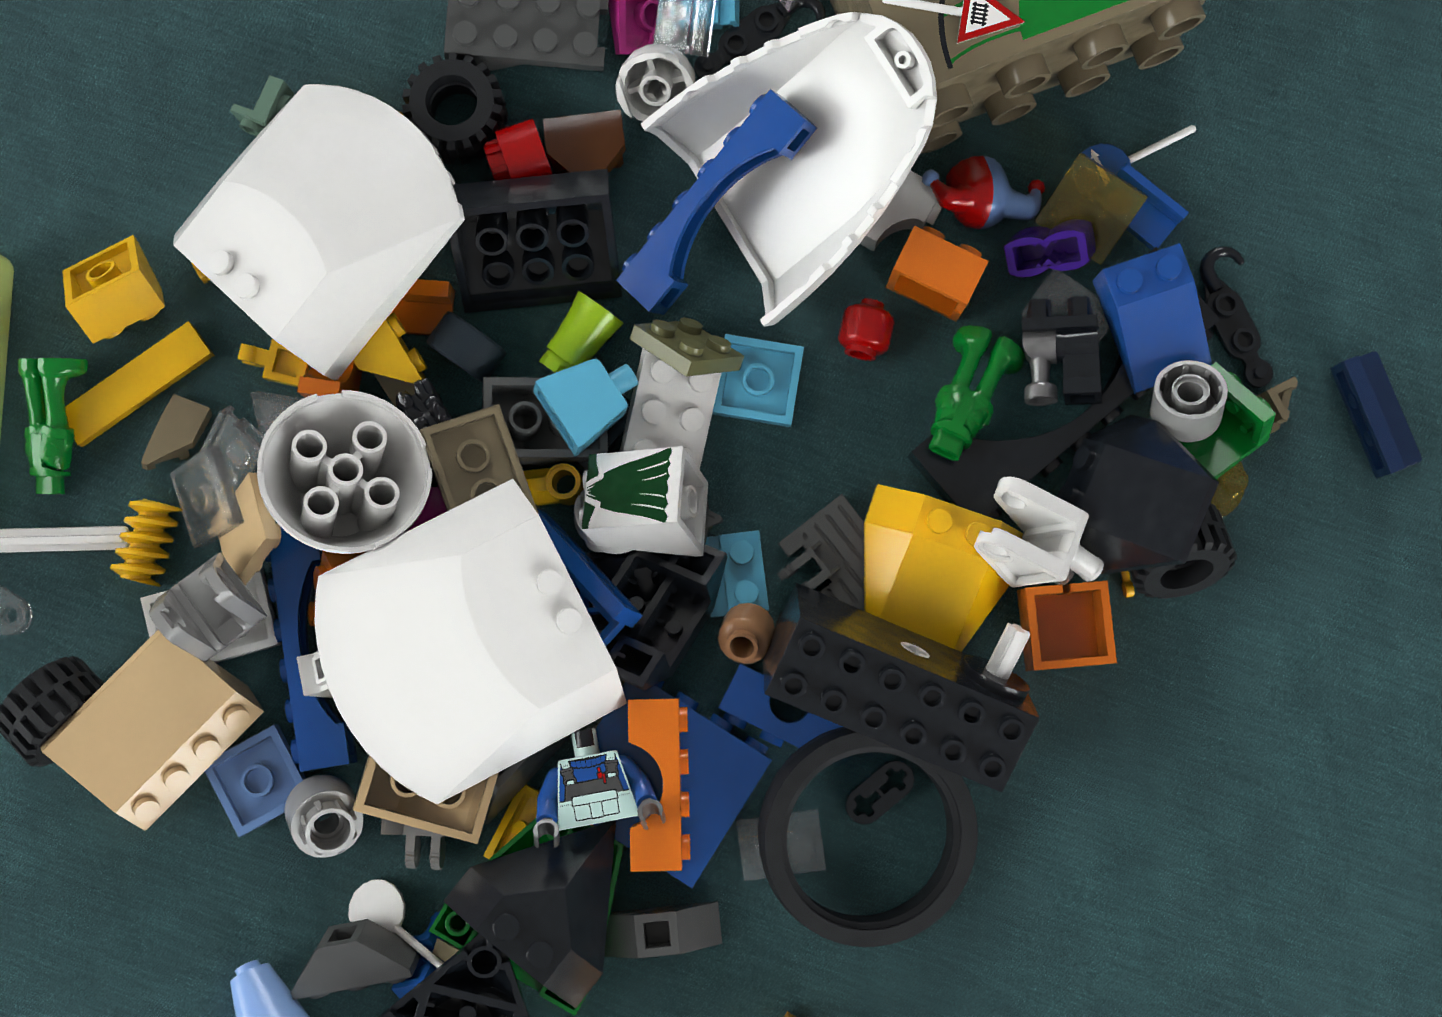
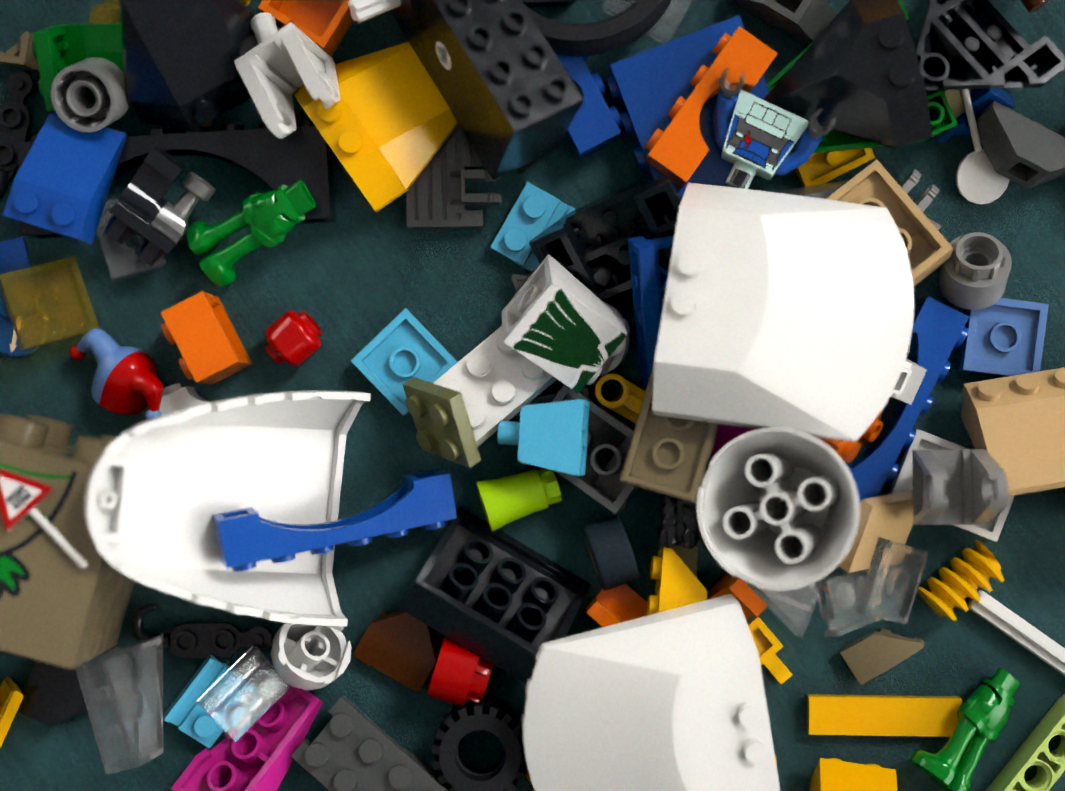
camera: 140 degrees left, 5 degrees up
(746, 633) = (558, 172): medium nougat head -> none
(1059, 248) = (97, 288): dark purple brick -> none

